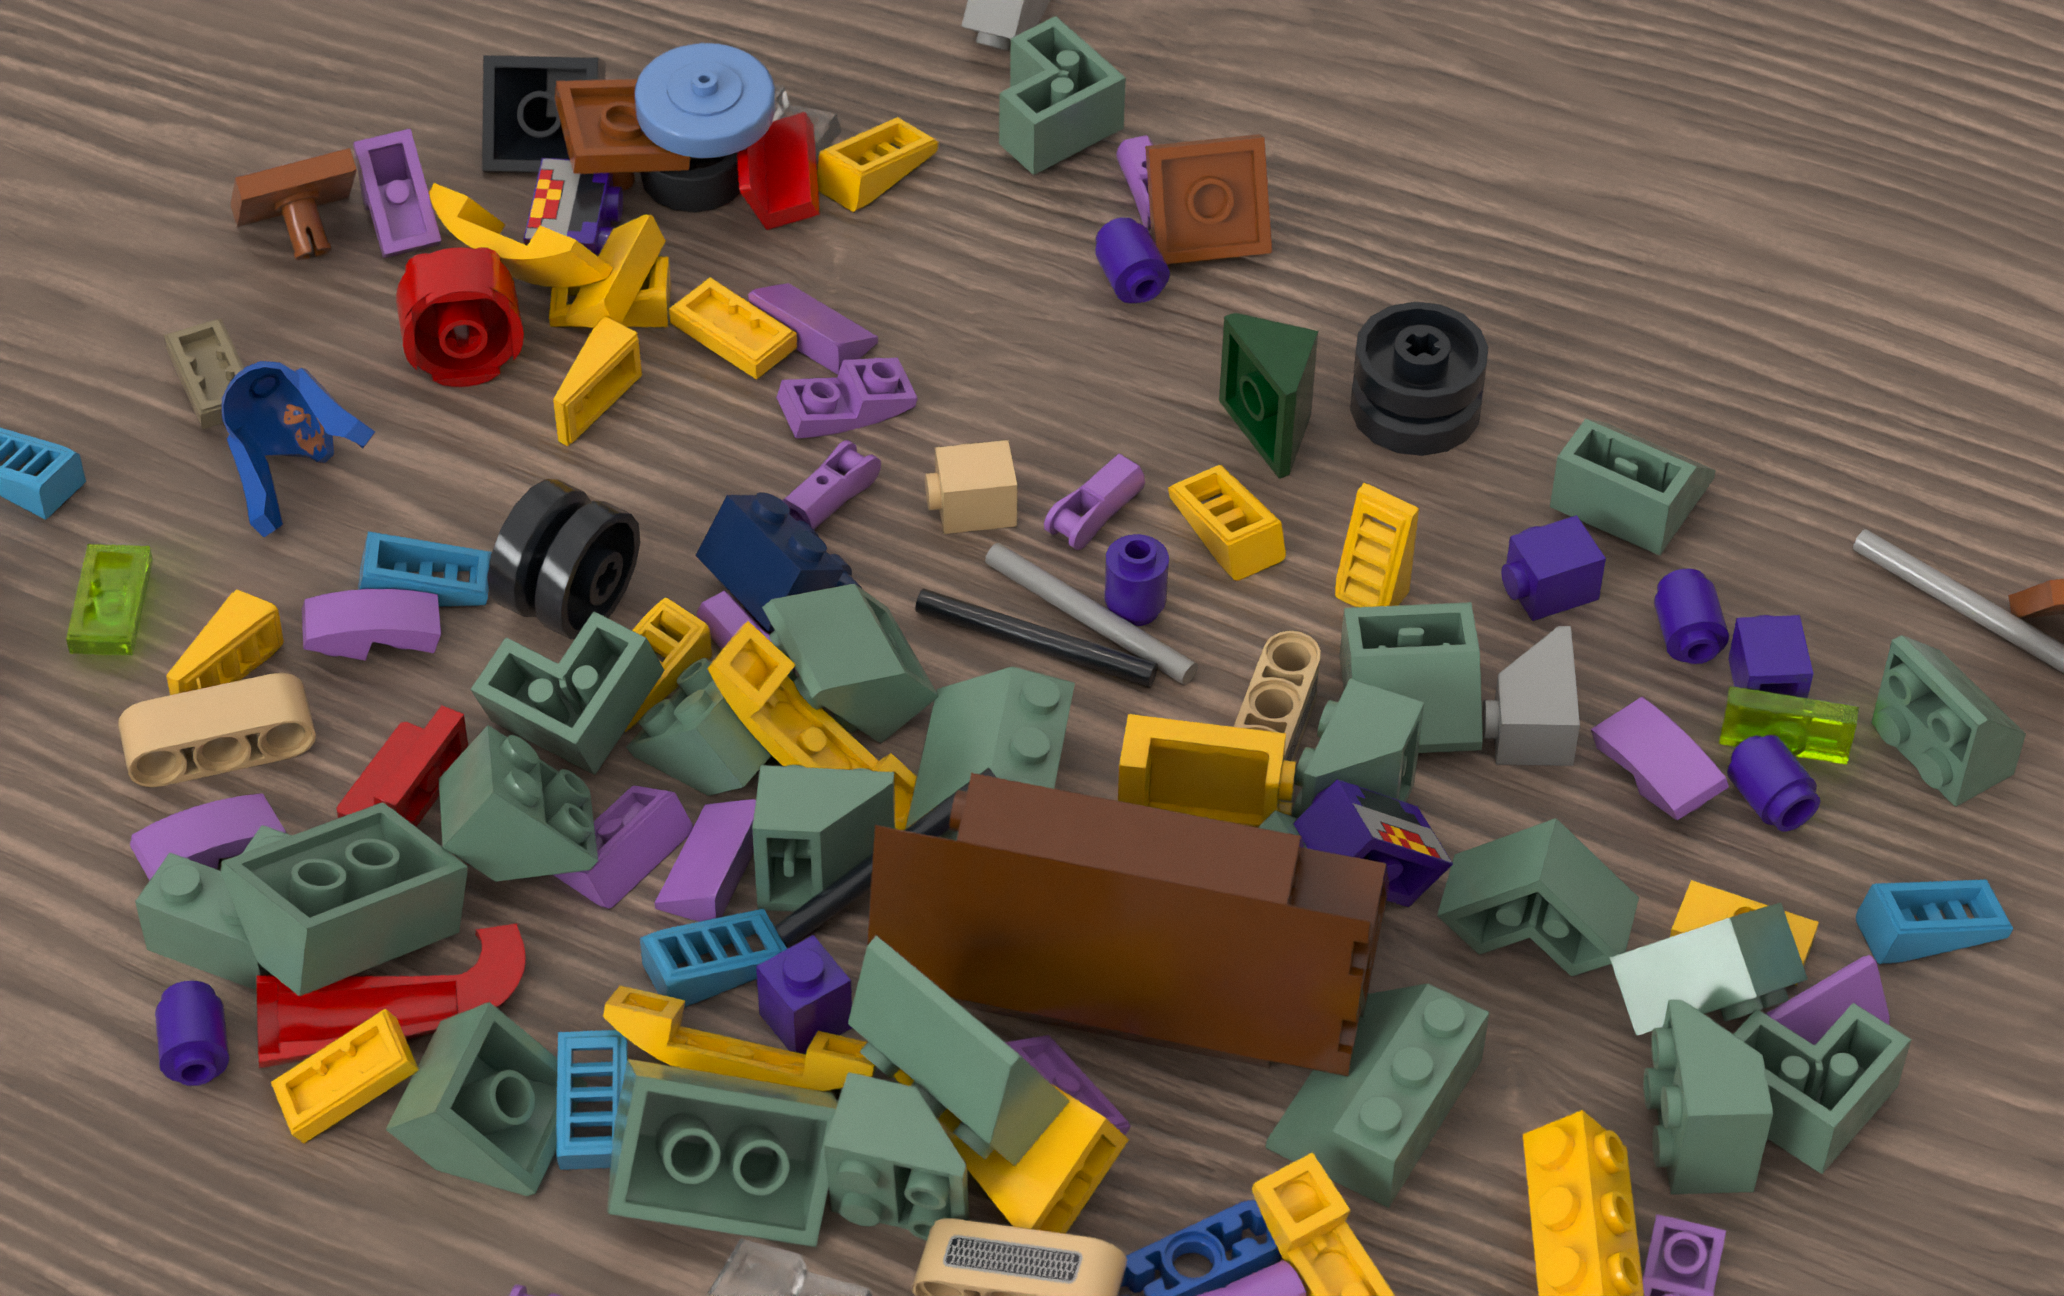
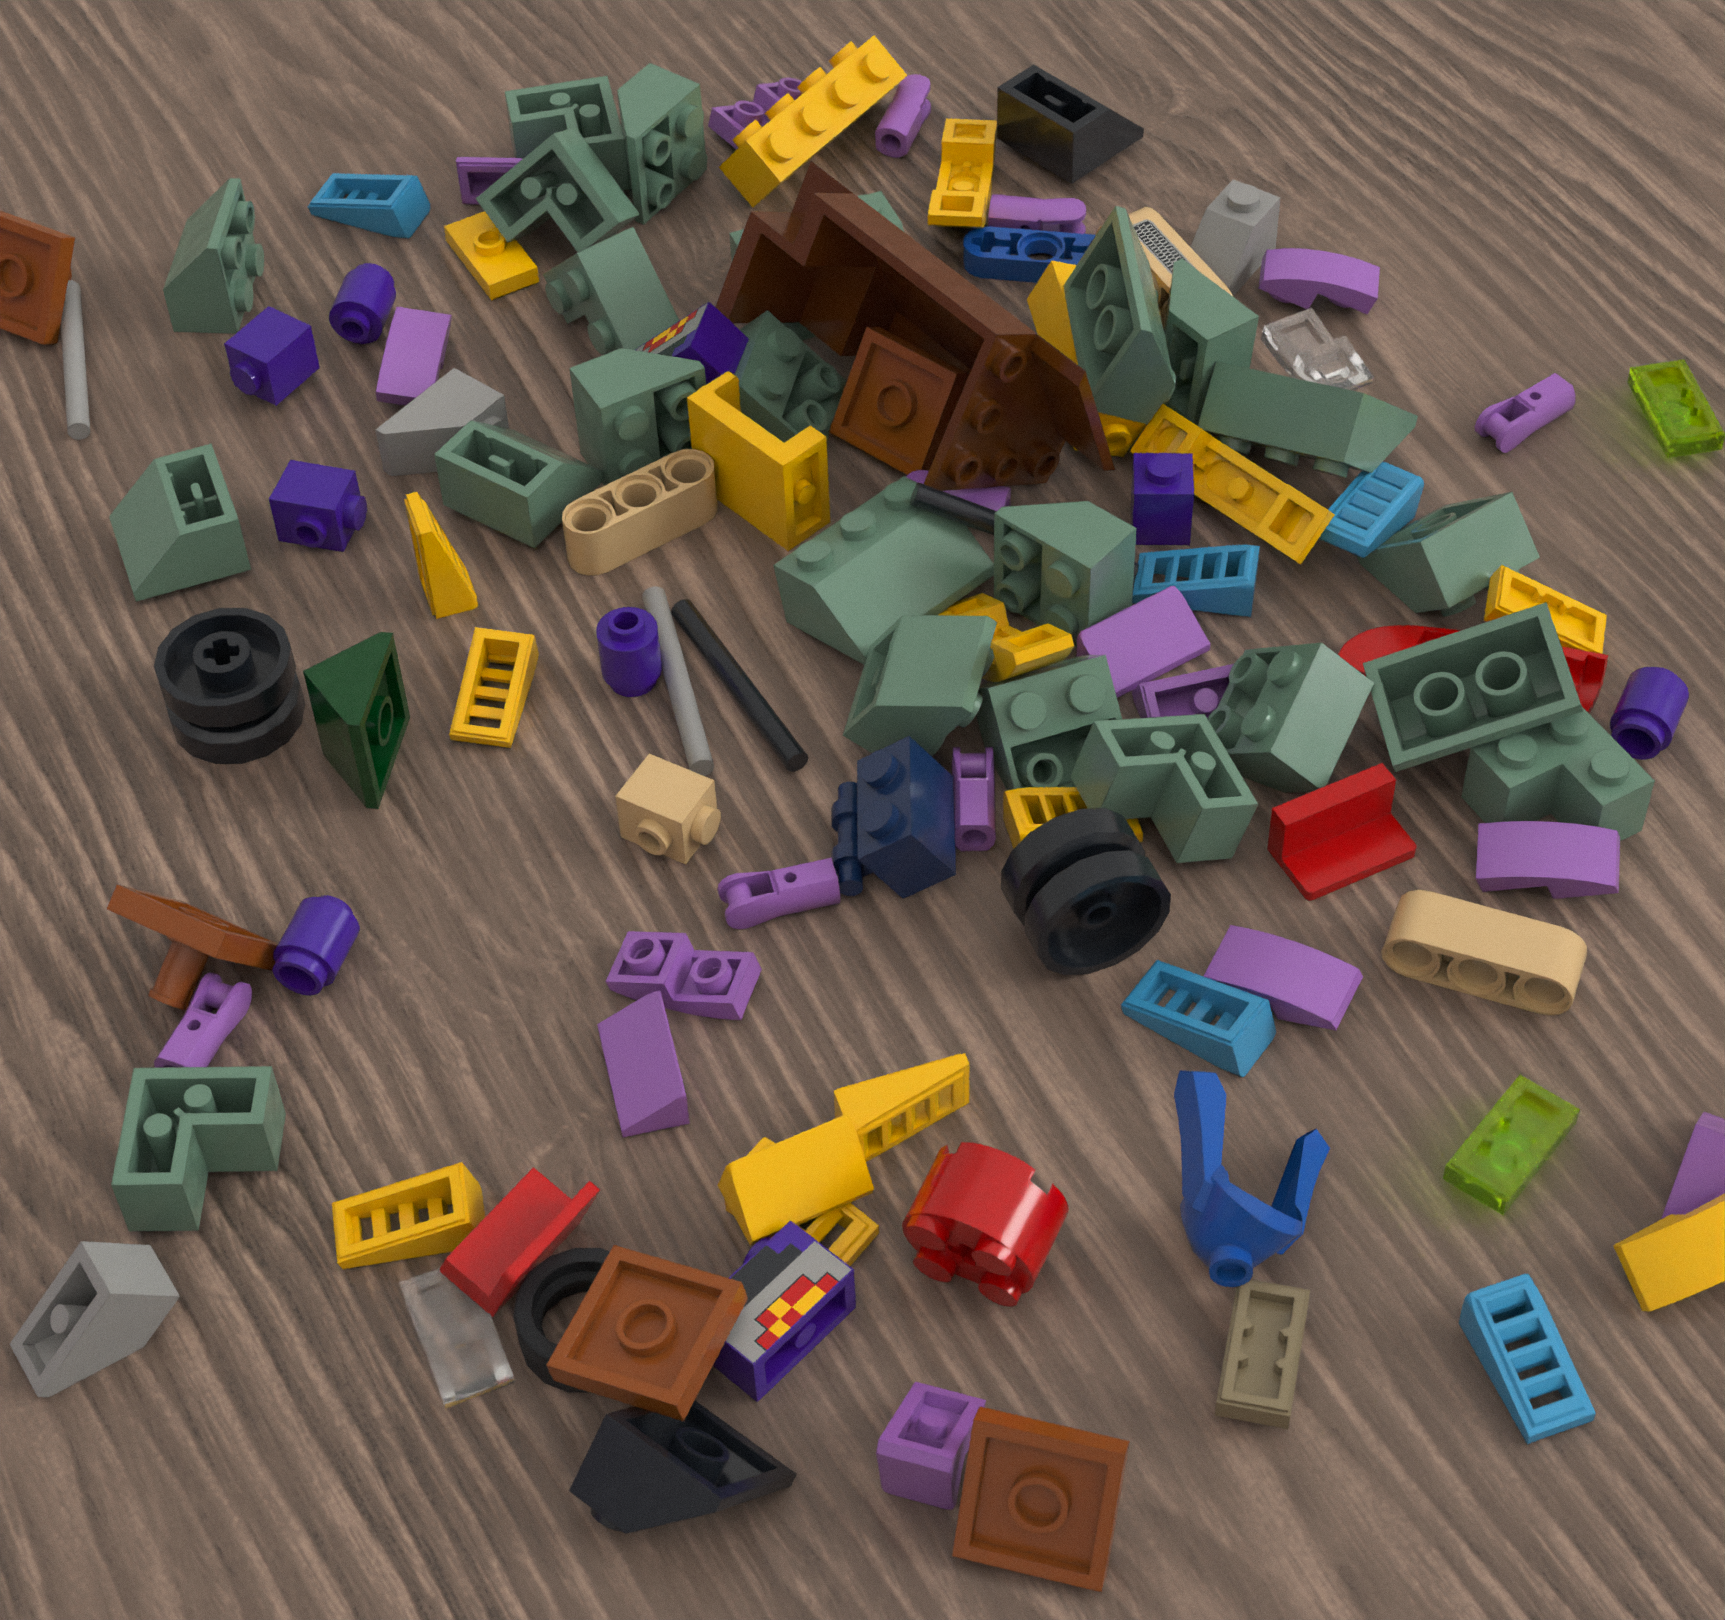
camera: 140 degrees left, 0 degrees up
(230, 645) = (1435, 1017): yellow slope -> none
(546, 261) = (855, 1185): yellow slope -> none
(705, 100) = (555, 1268): medium blue wheel -> none
(733, 328) = (720, 1097): yellow plate -> none
(1097, 500) = (583, 755): medium lavender bar -> none
(1690, 616) = (271, 425): dark purple brick -> none
(1804, 725) = (326, 335): clear neon green plate -> none

